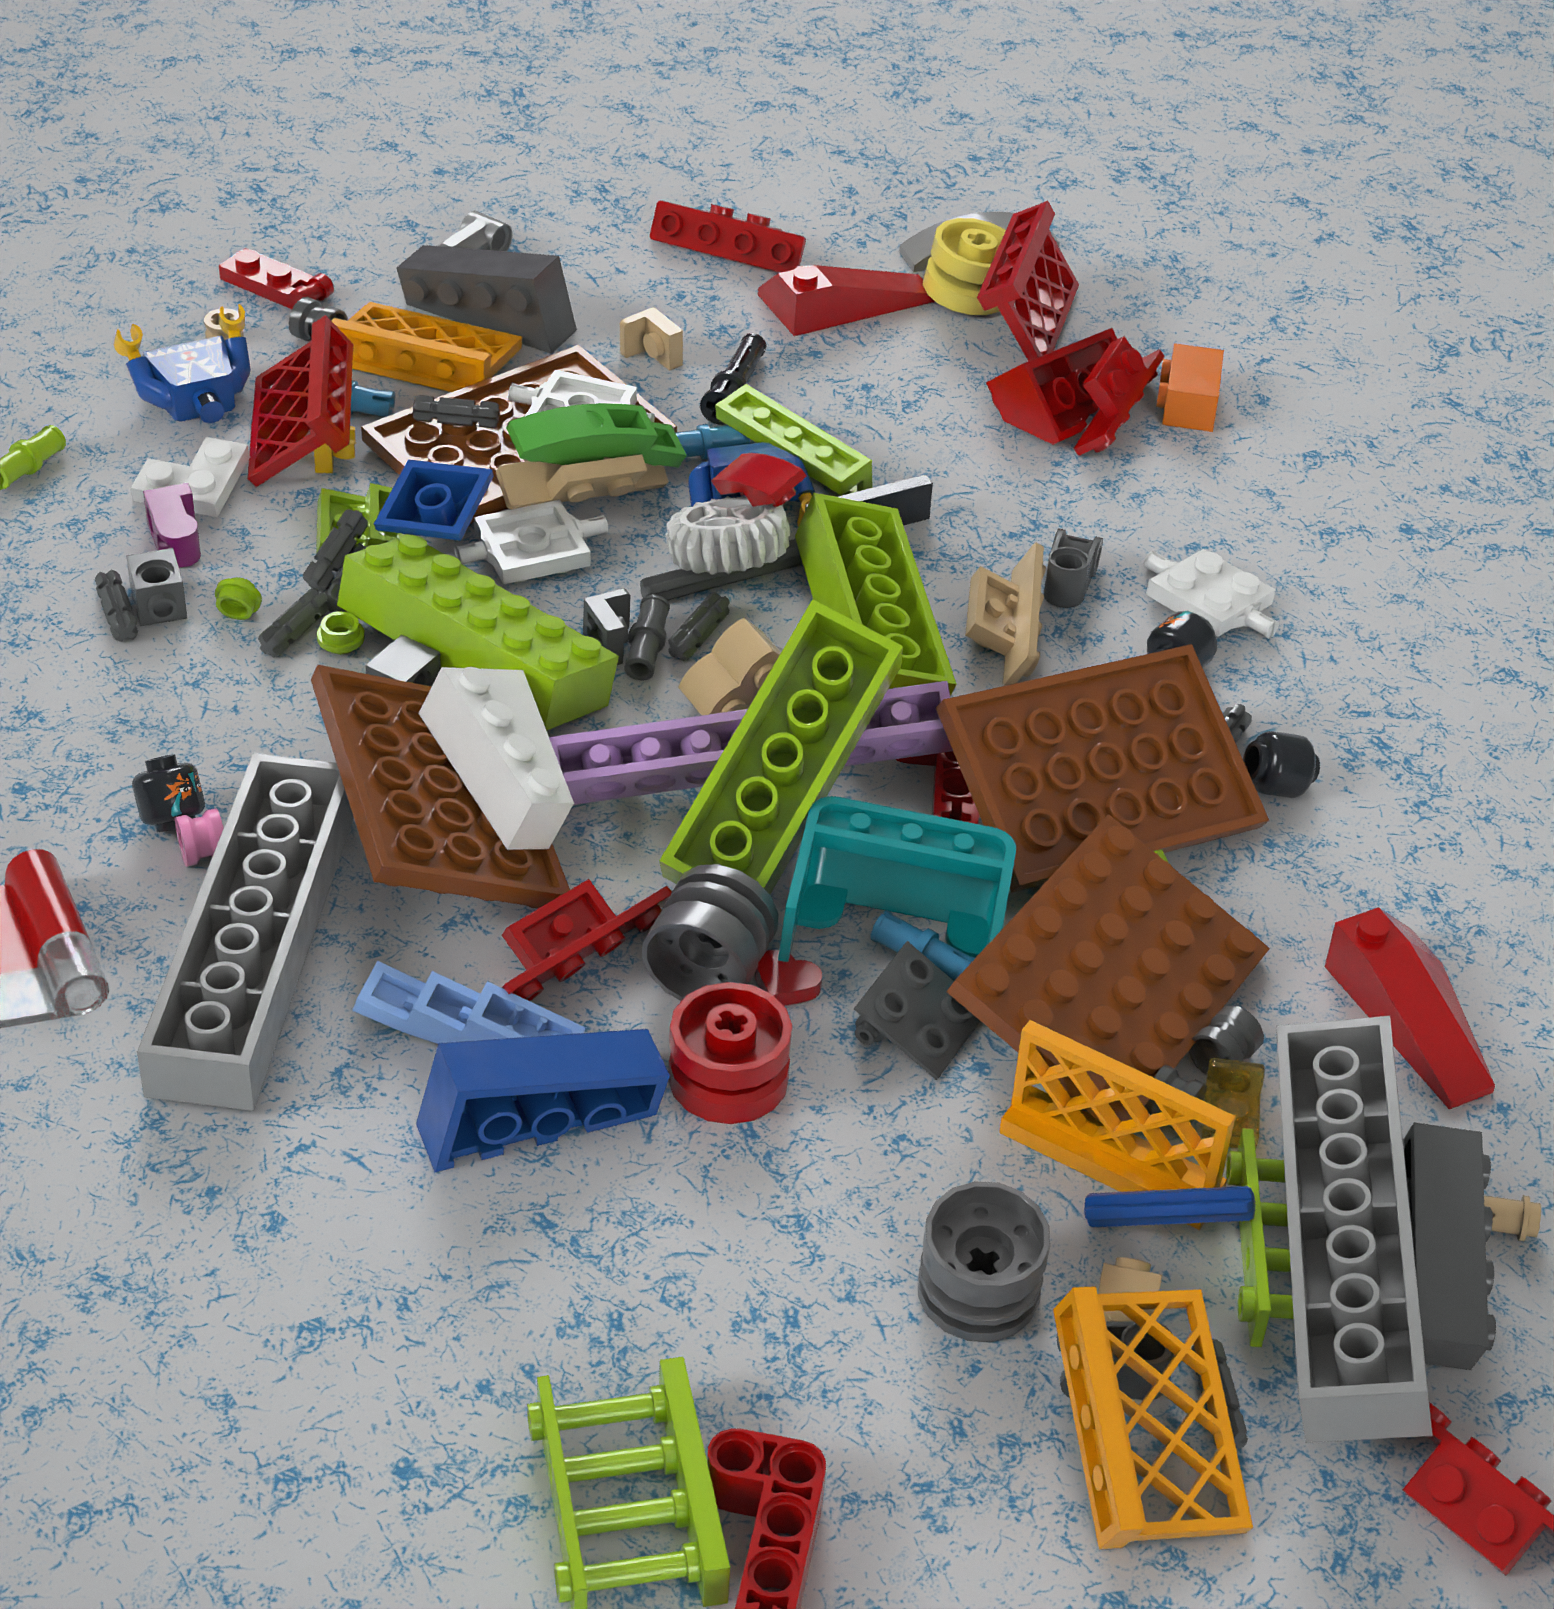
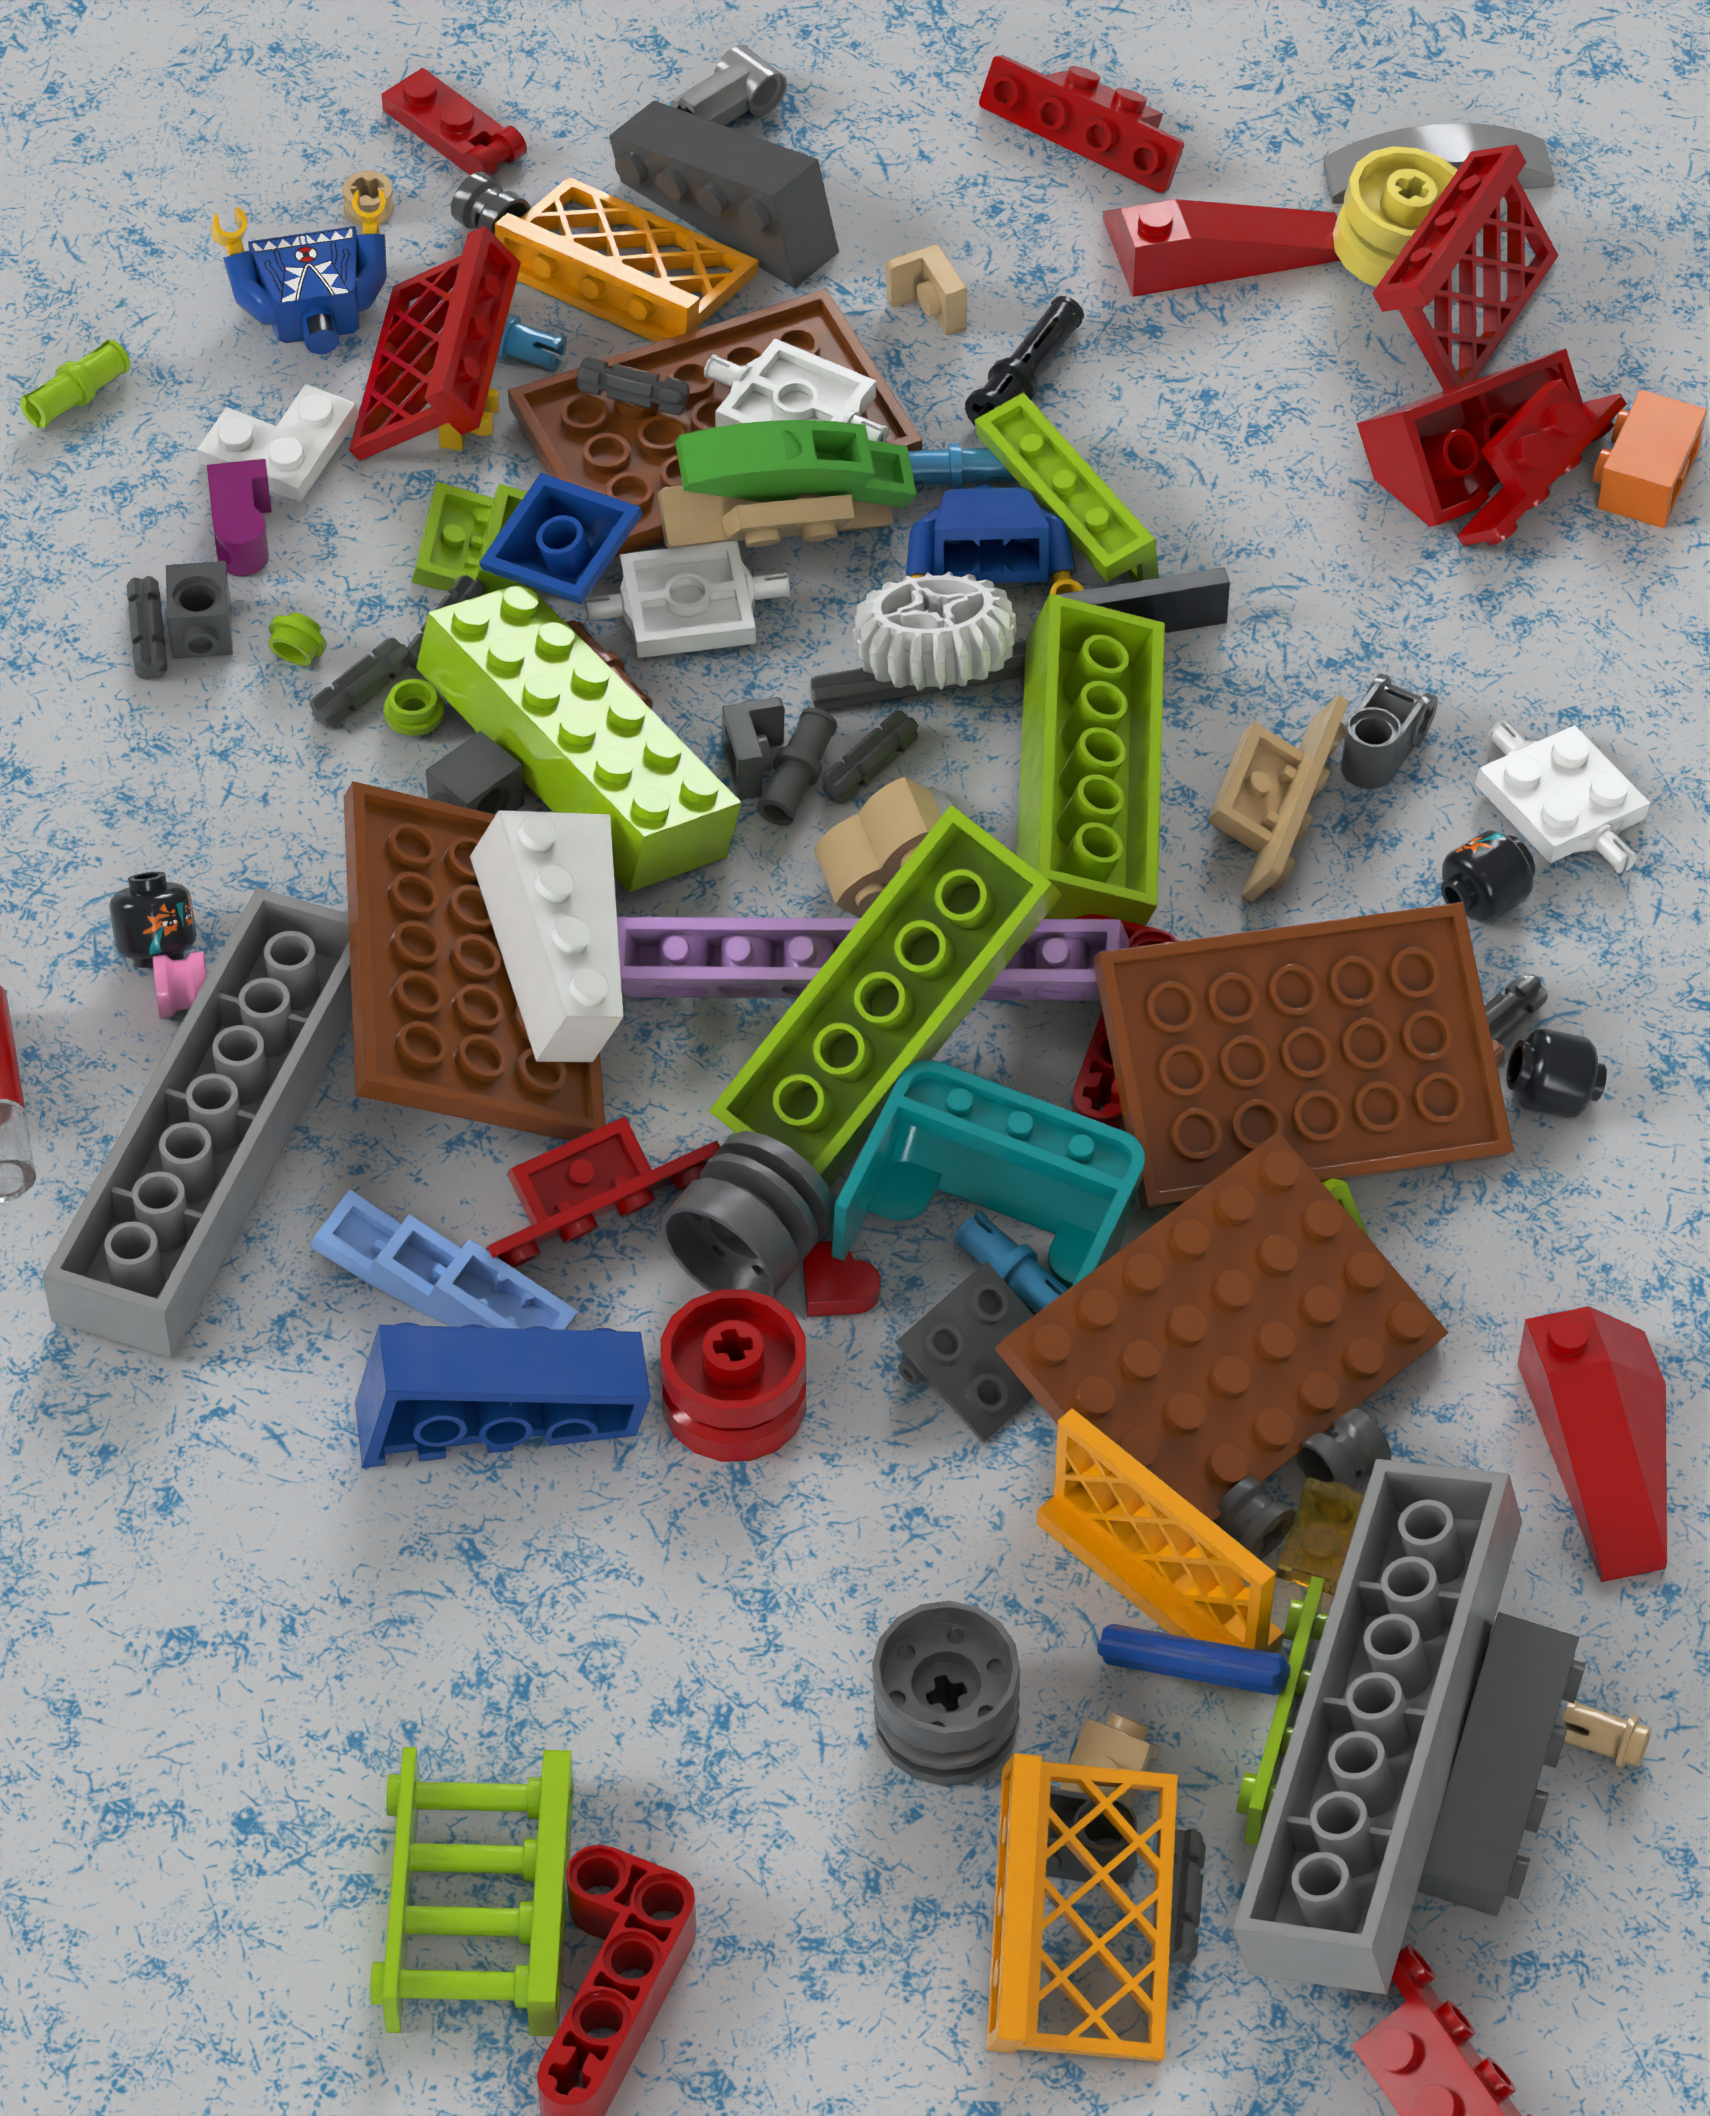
camera: 15 degrees right, 10 degrees up
(333, 550) = (432, 582): dark grey axle -> none
(760, 478) = (985, 563): red slope -> none

